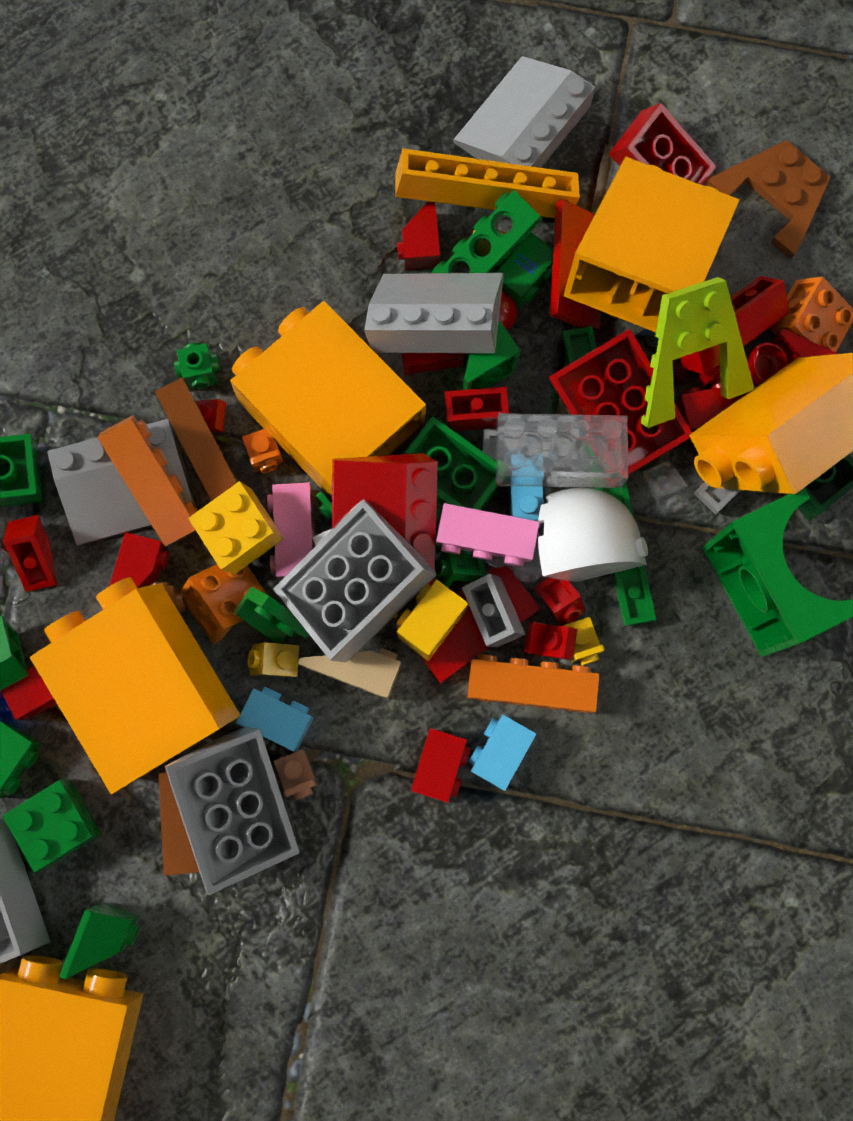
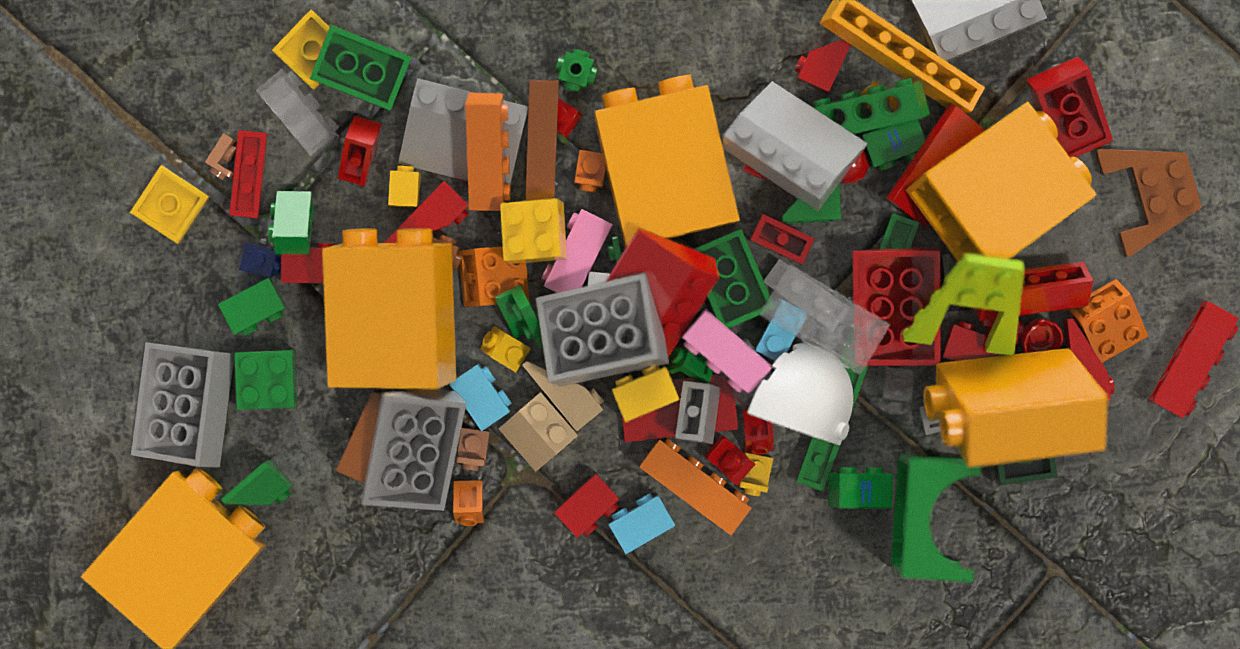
camera: 30 degrees right, 10 degrees up
(92, 562) = (404, 187): none -> yellow brick
(321, 831) = (468, 502): none -> orange bracket
(350, 720) = (538, 431): none -> tan slope
(690, 596) = (860, 489): none -> green brick

